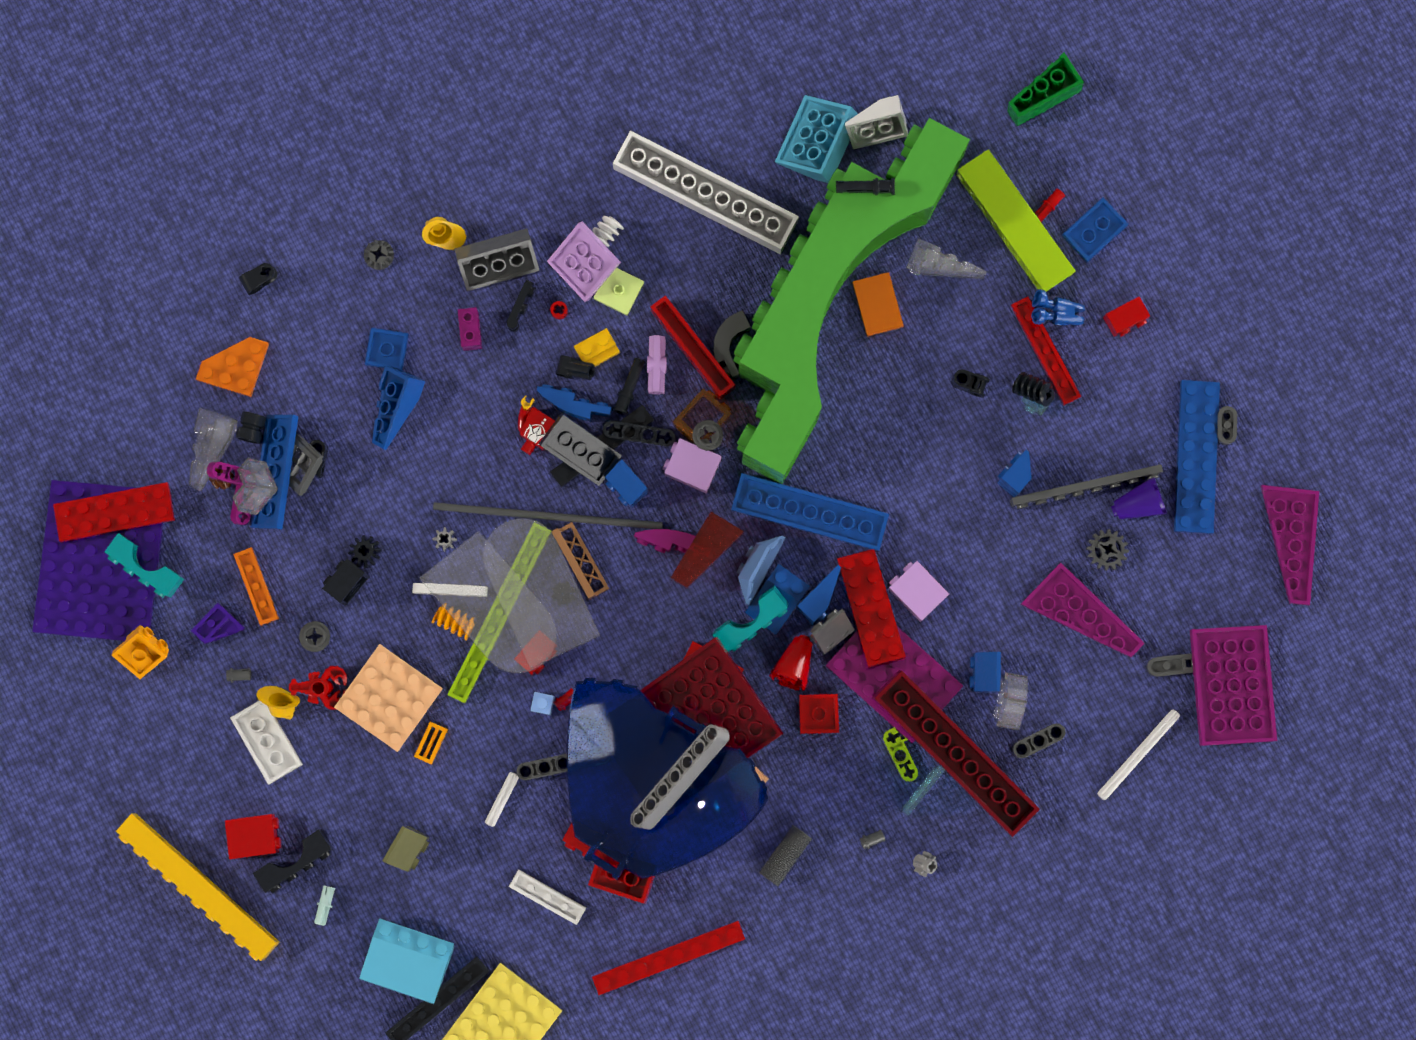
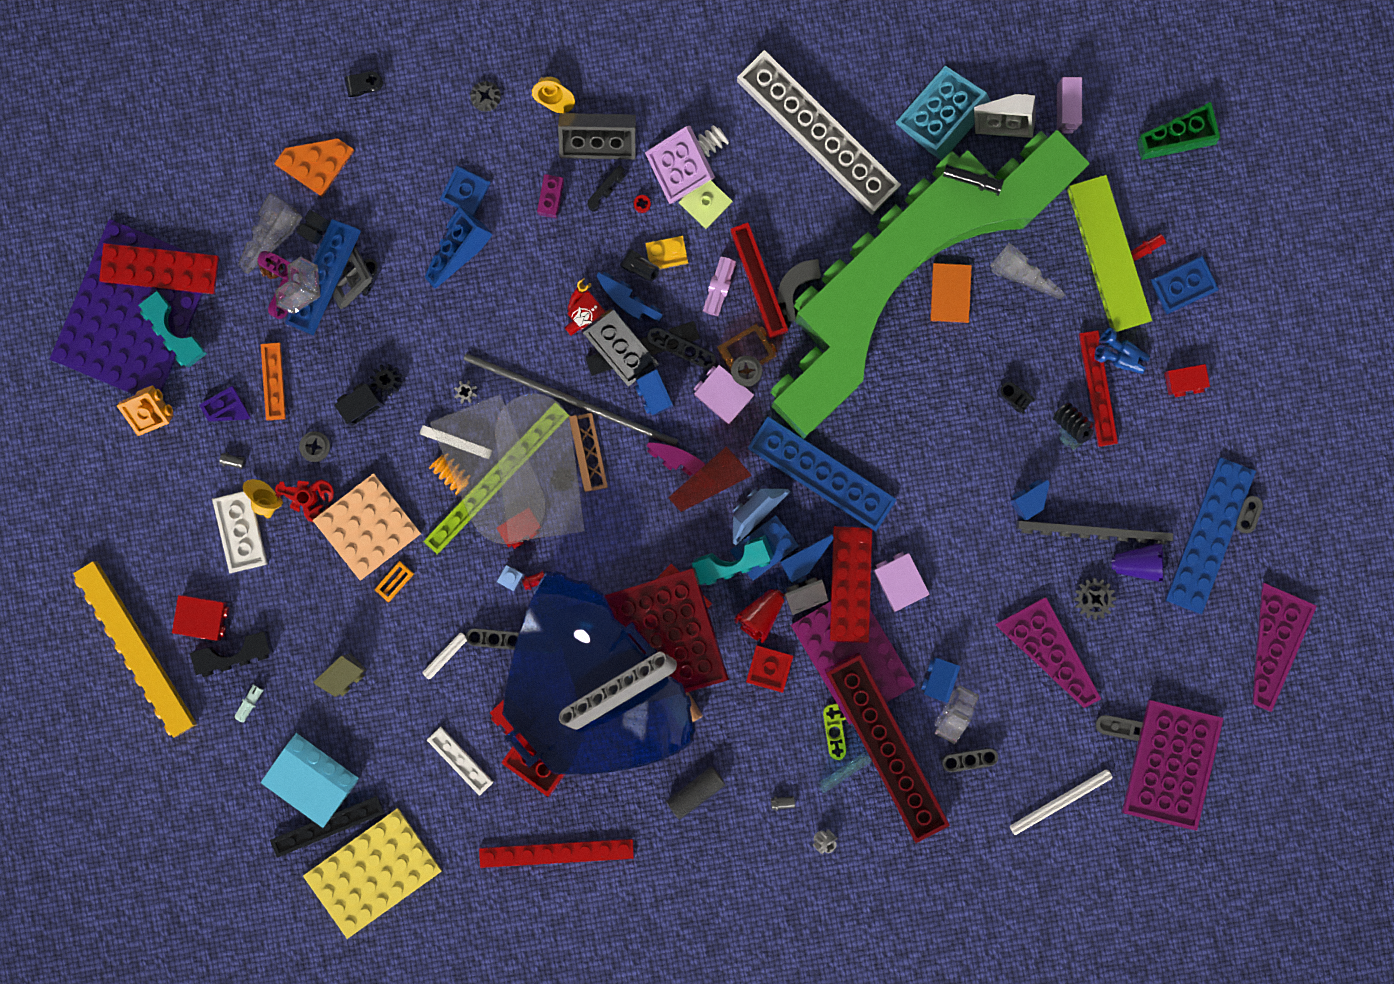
camera: 25 degrees right, 5 degrees up
(626, 394) = (681, 307): black pin -> none
(932, 94) = (1069, 104): none -> lavender brick

